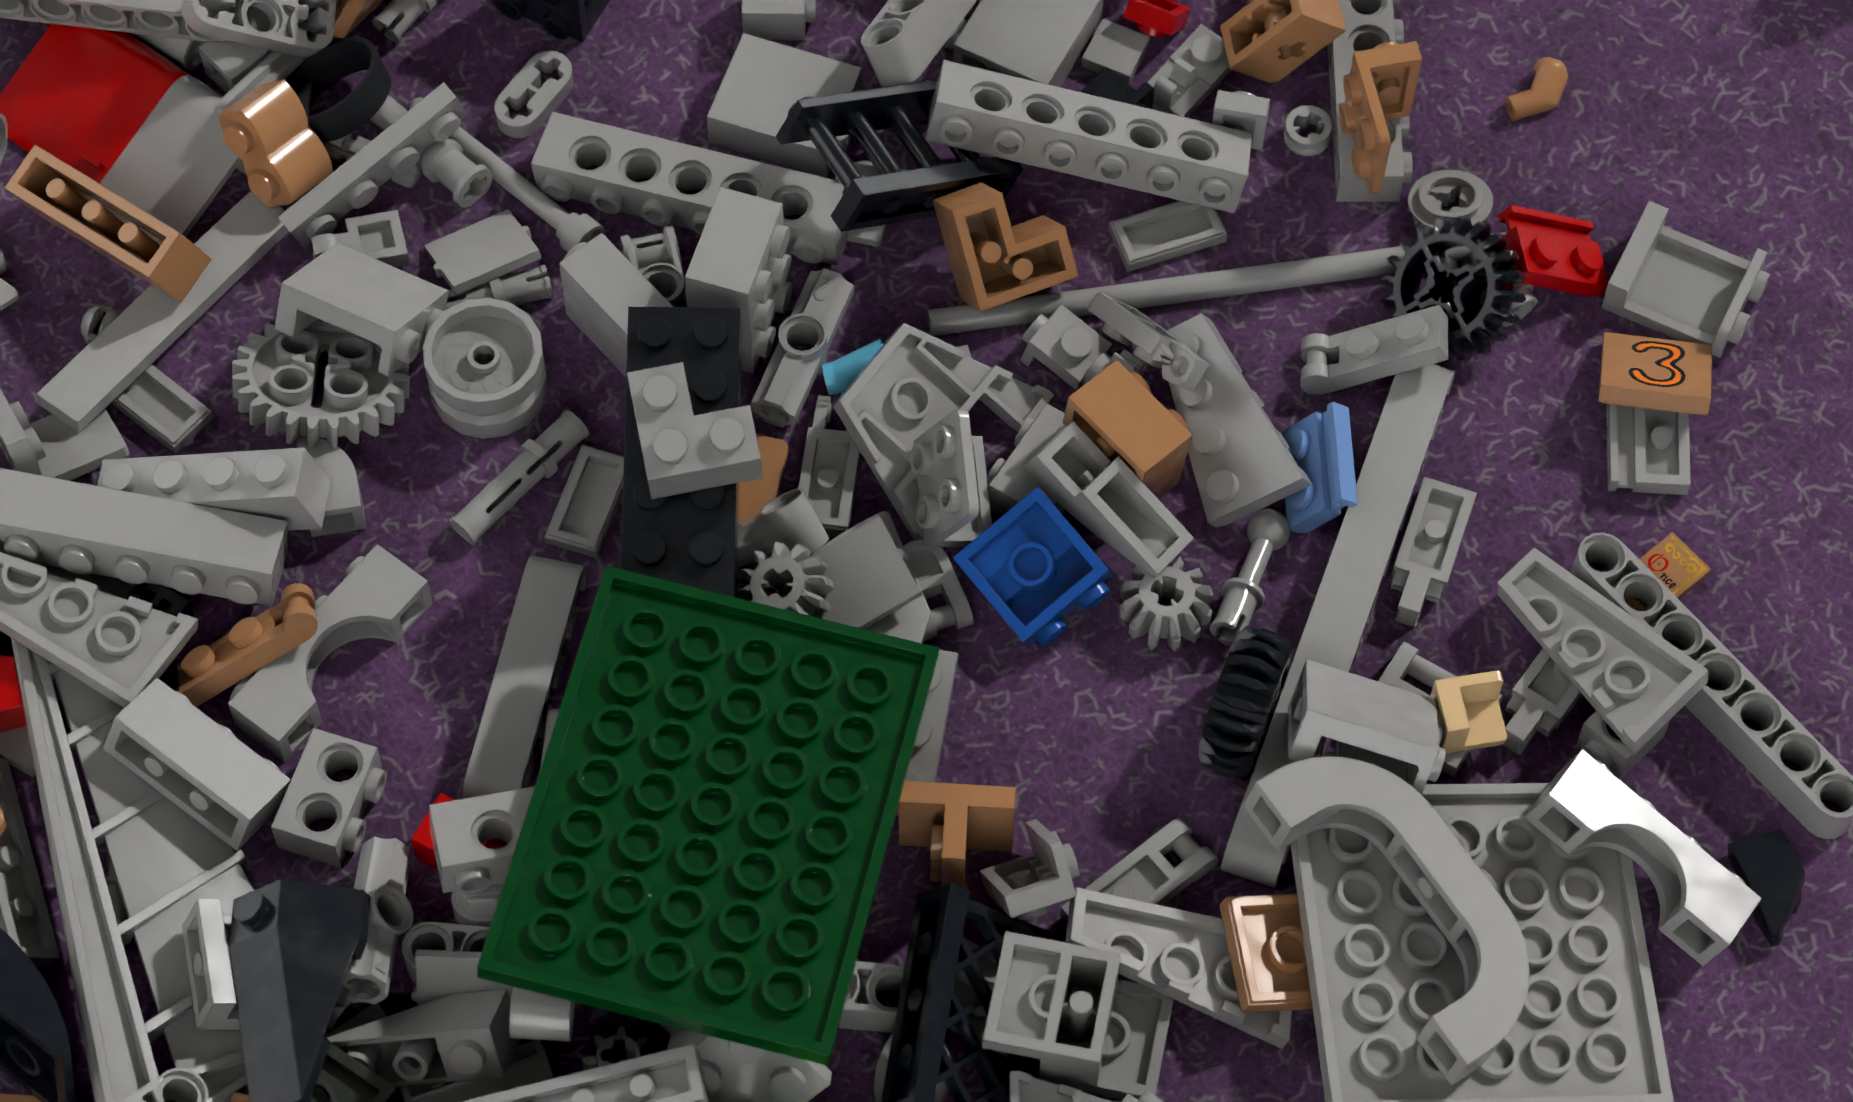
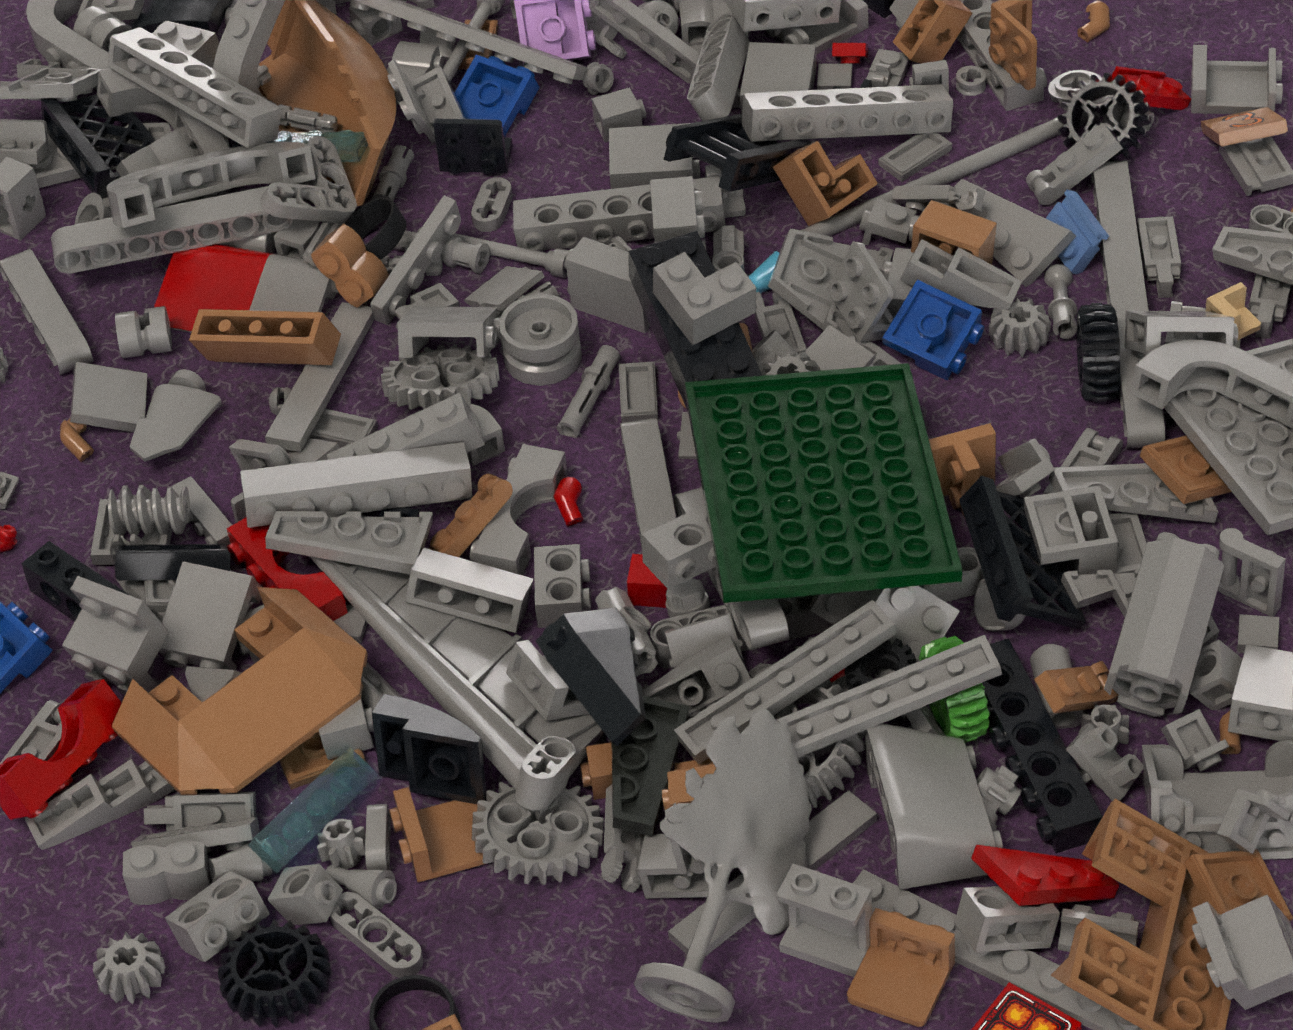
camera: 15 degrees left, 15 degrees down
(405, 649) = (566, 498): none -> red arm

